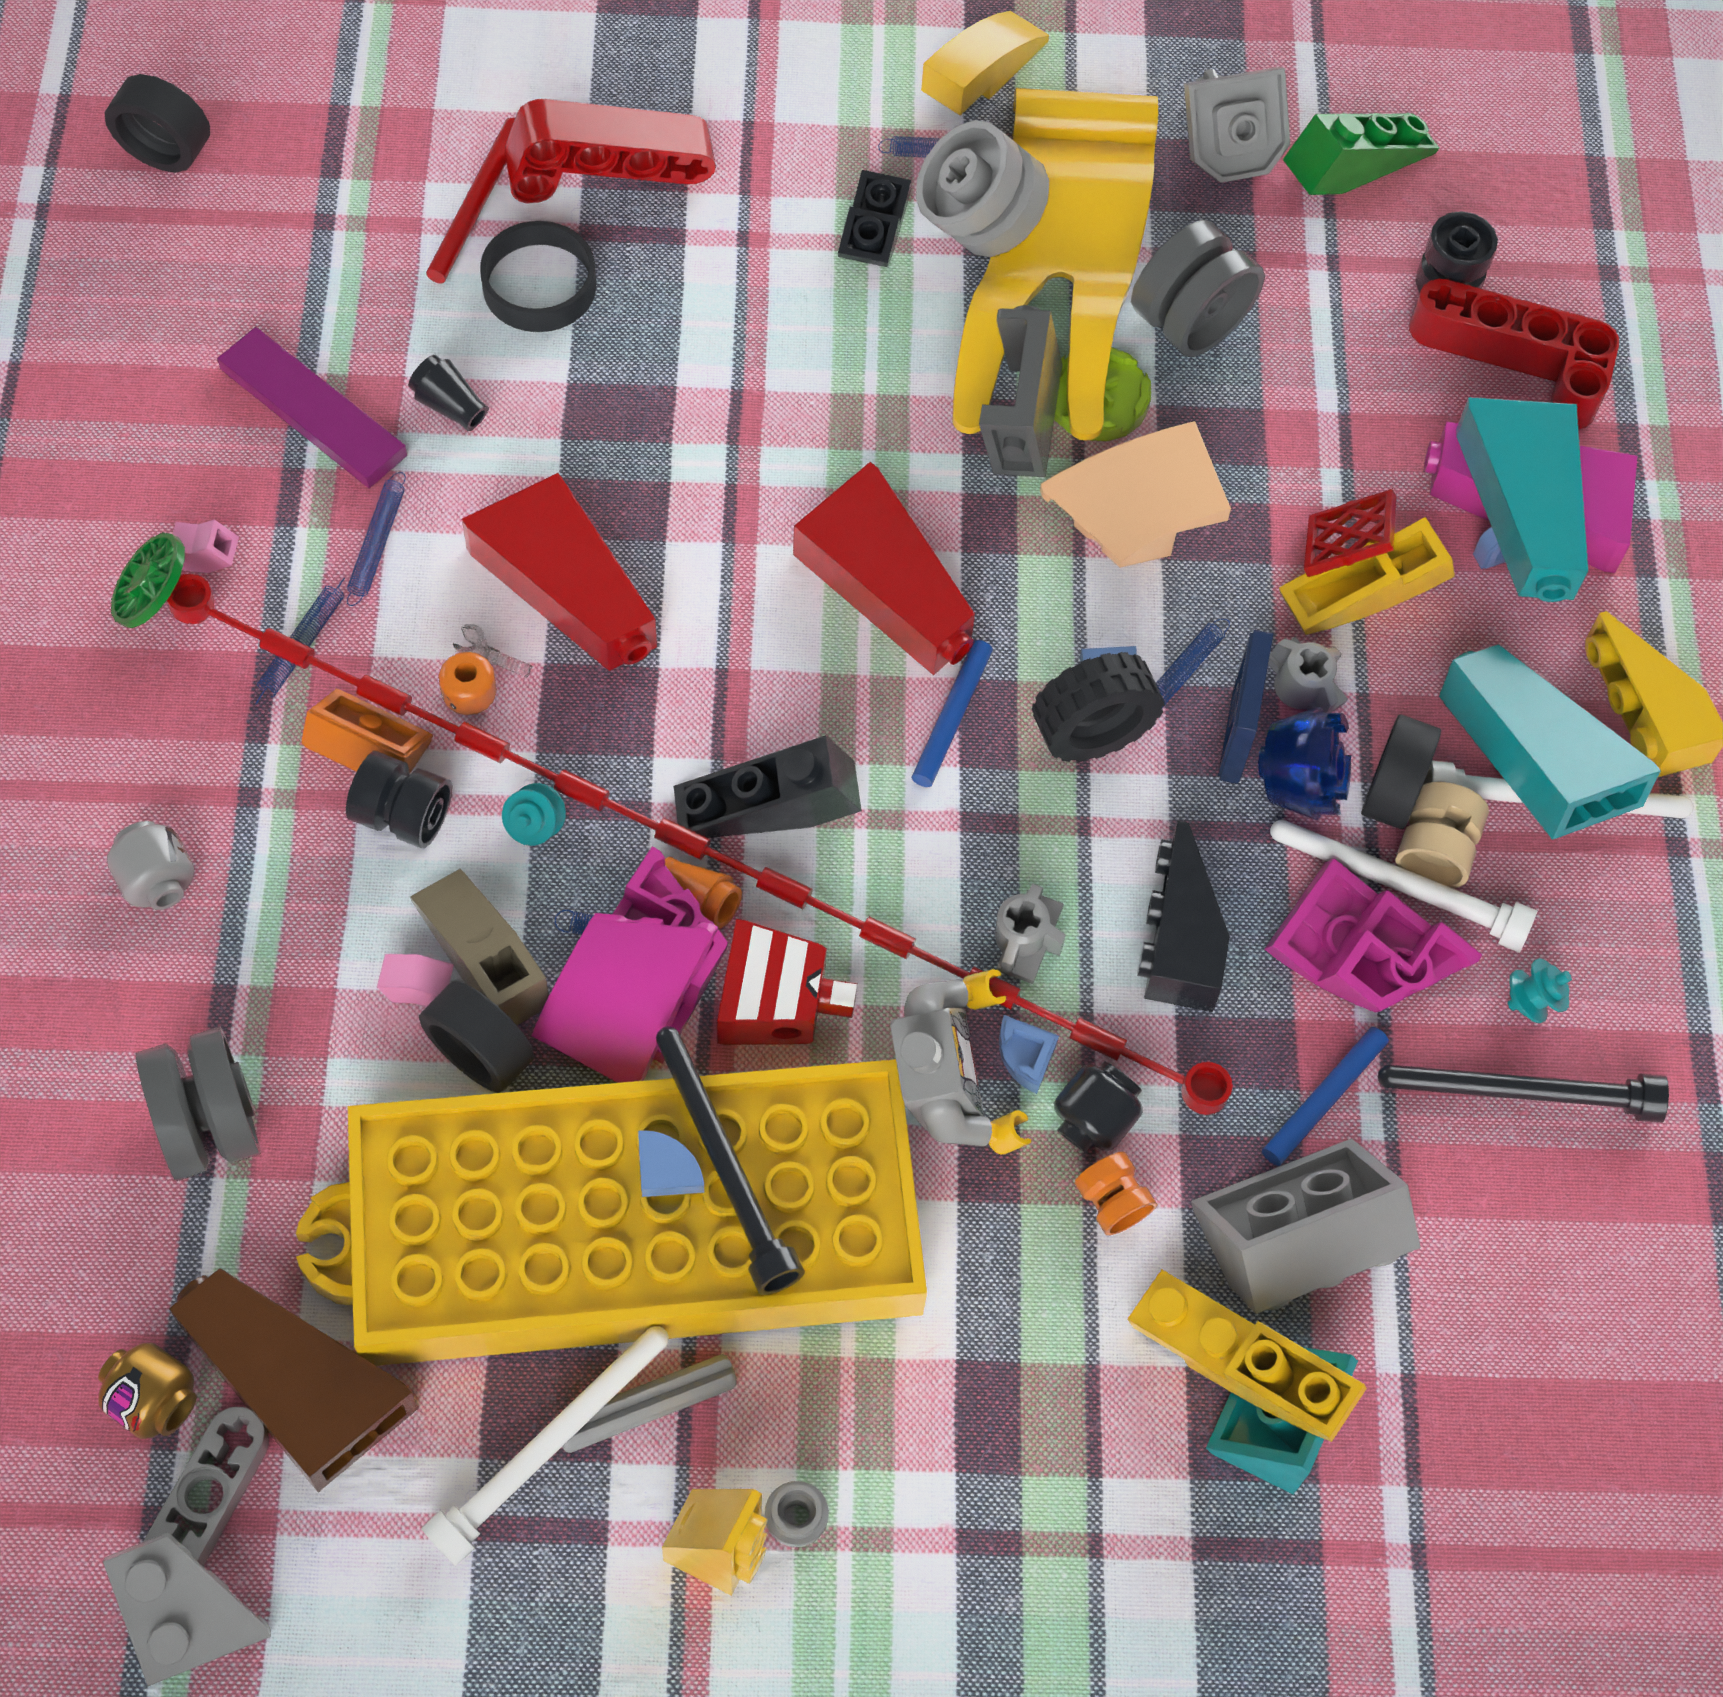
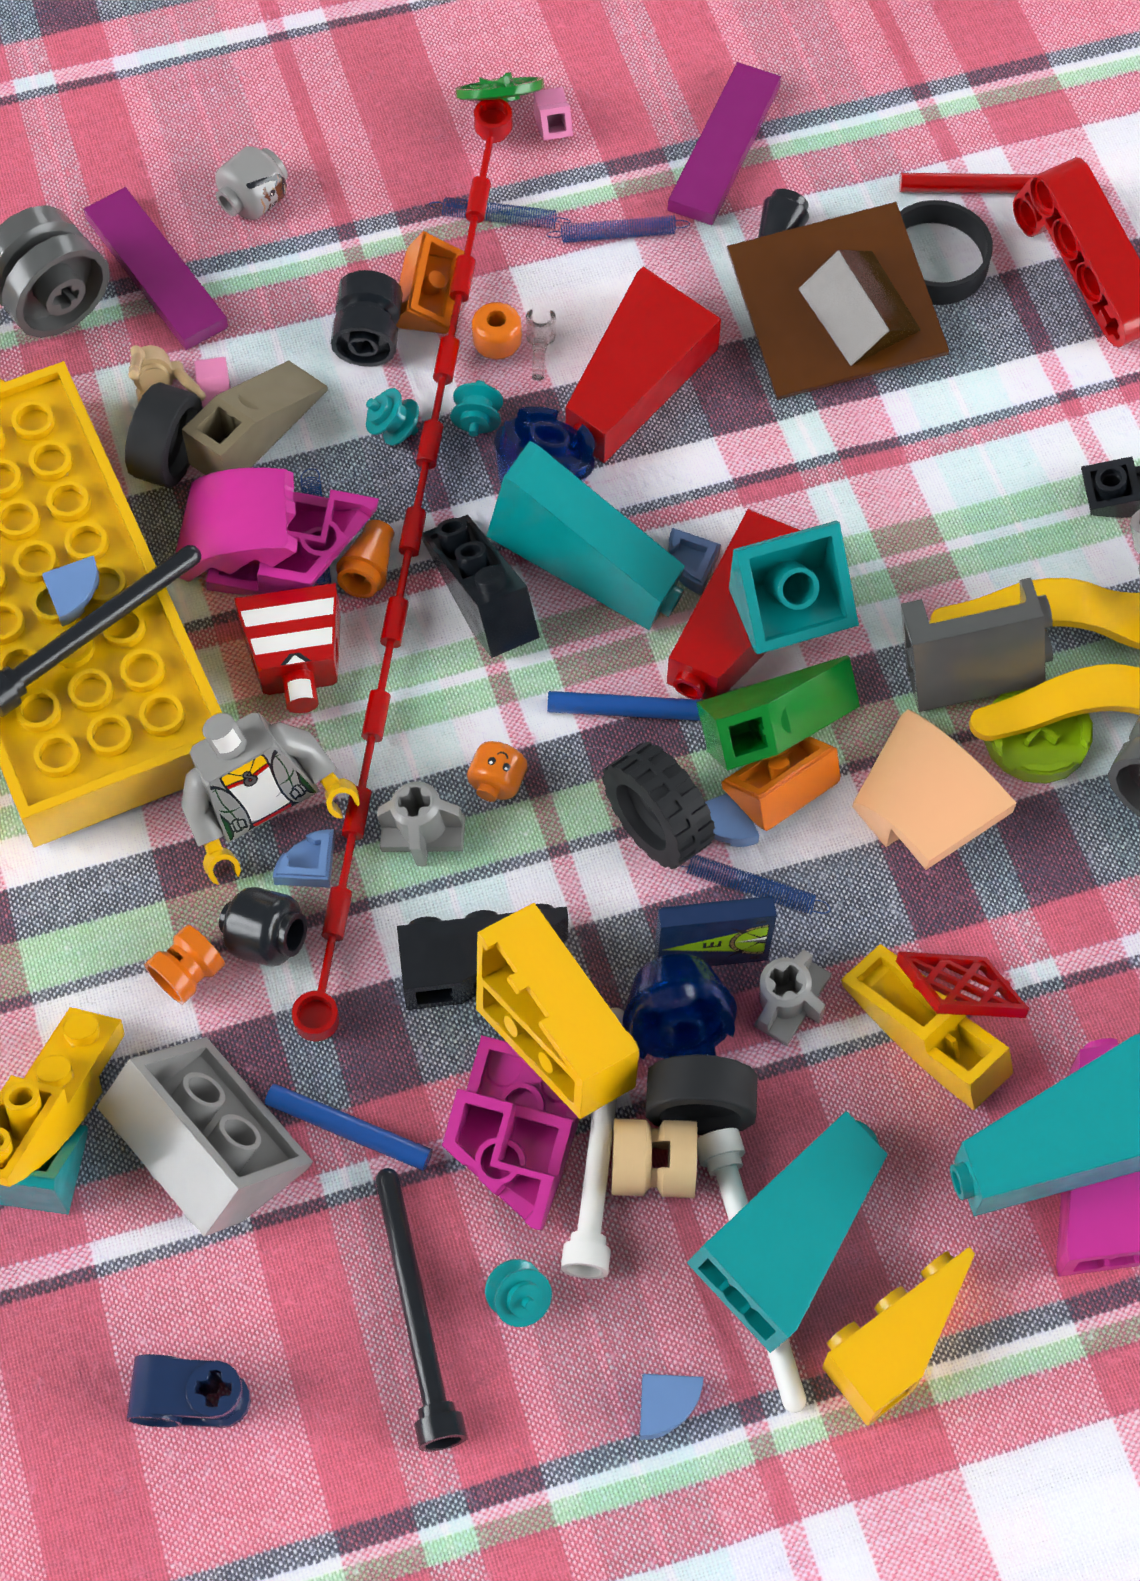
camera: 75 degrees right, 0 degrees up
(213, 998) = (156, 268): none -> magenta tile
(377, 1034) = (153, 366): none -> tan plant
(556, 732) = (476, 408): none -> teal wheel
(565, 375) = (789, 333): none -> reddish brown piece
(587, 364) = (858, 304): none -> slope
(656, 684) = (560, 440): none -> clear blue cone
(773, 678) = (583, 539): none -> teal slope
(807, 605) = (698, 557): none -> medium blue tile
(919, 511) = (793, 587): none -> teal slope
(994, 845) = (496, 771): none -> orange piece
(1023, 598) = (777, 712): none -> green slope
(1081, 607) = (785, 782): none -> orange slope
(1295, 863) = (552, 1012): none -> yellow wedge
(1564, 1318) = (175, 1391): none -> dark blue piece
(1663, 907) = (667, 1402): none -> medium blue tile

